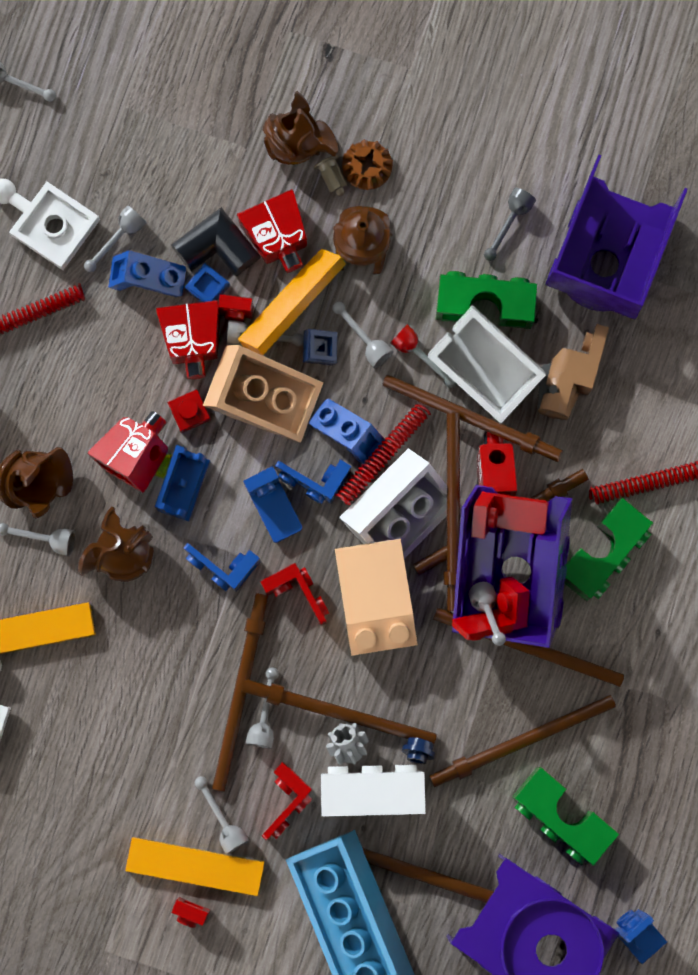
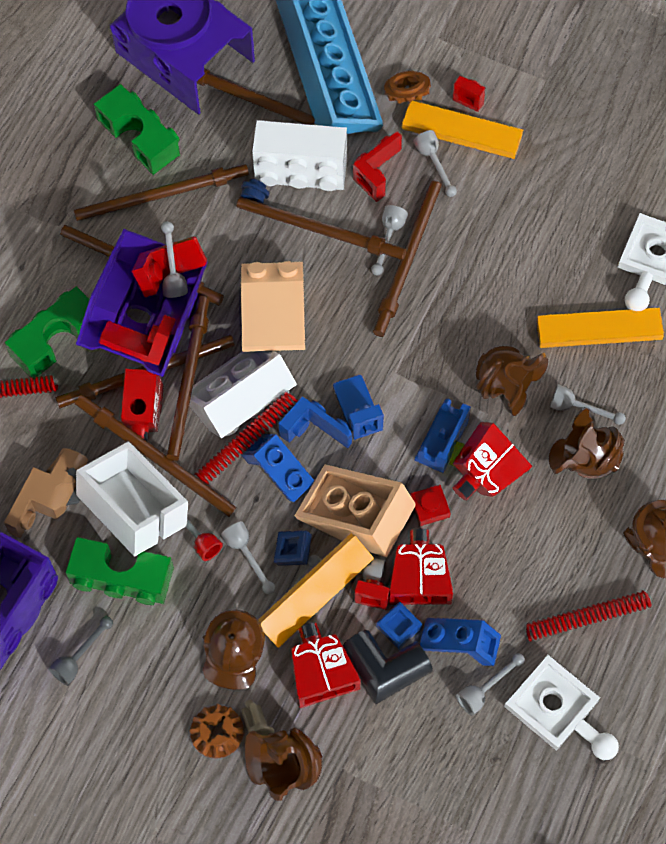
camera: 170 degrees left, 15 degrees down
(241, 568) = (404, 345): blue bracket -> none
(276, 917) = (396, 88): none -> dark orange gear
(281, 583) = (356, 341): red bracket -> none
(347, 743) = (325, 198): light grey gear -> none
(639, 934) = (94, 39): blue bracket -> none

